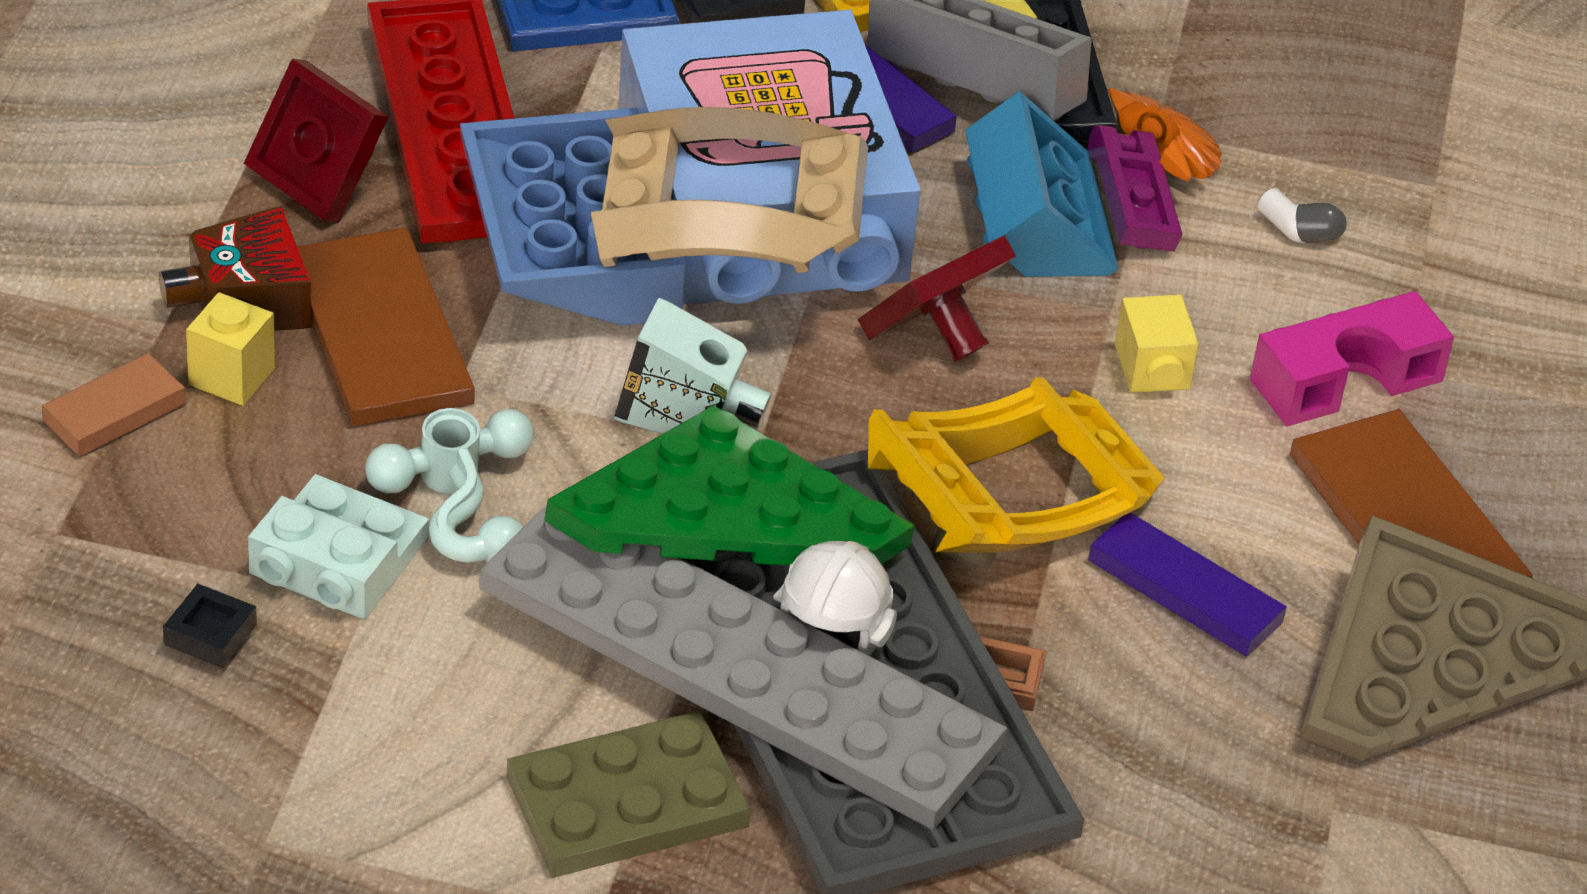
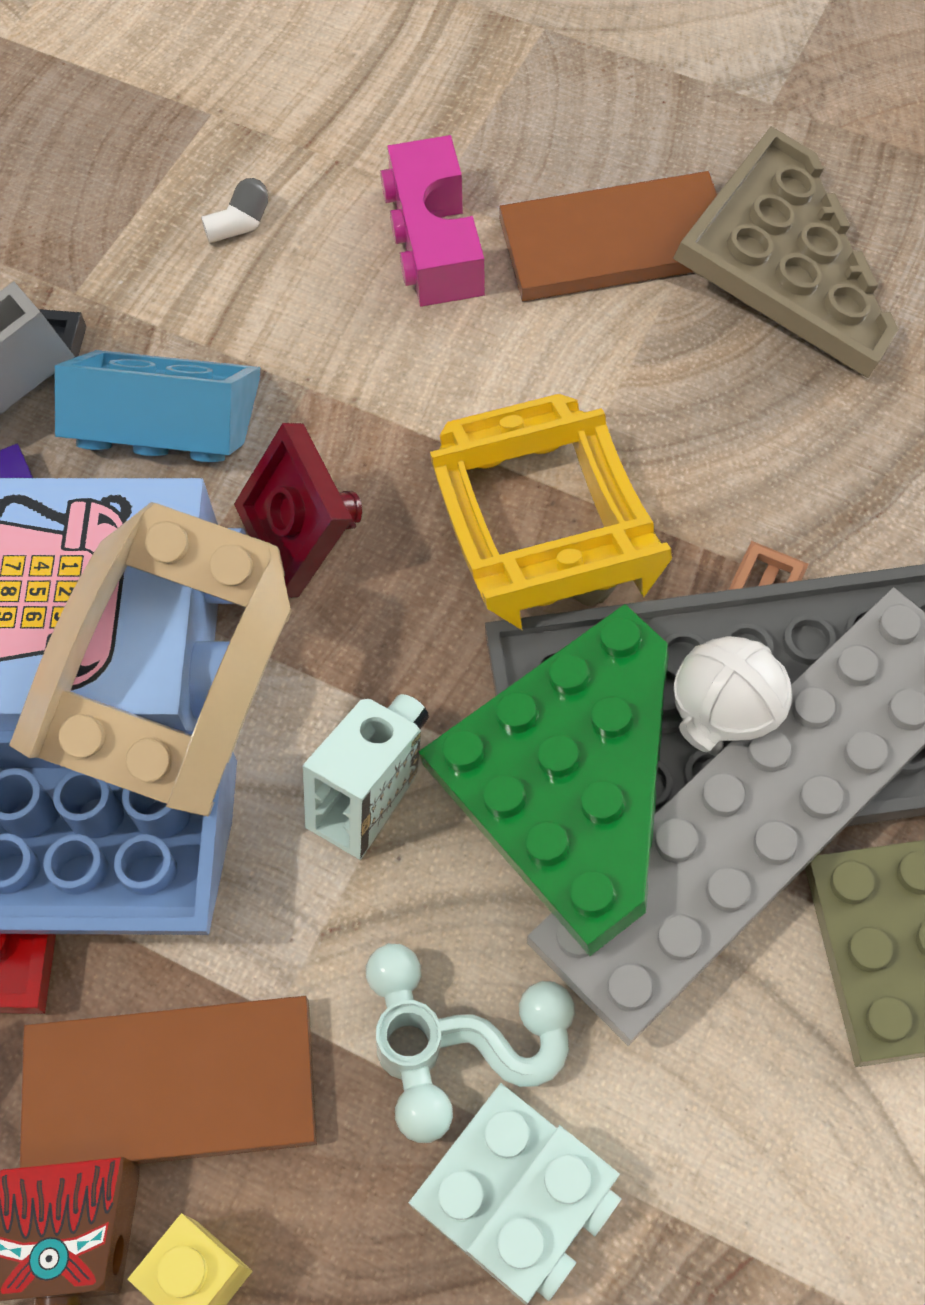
camera: 70 degrees left, 20 degrees up
(1136, 188) = (165, 321): magenta plate -> none
(1156, 343) = (386, 356): light yellow brick -> none
(1182, 143) = (100, 279): orange hair -> none
(1187, 583) = (681, 411): dark purple tile -> none

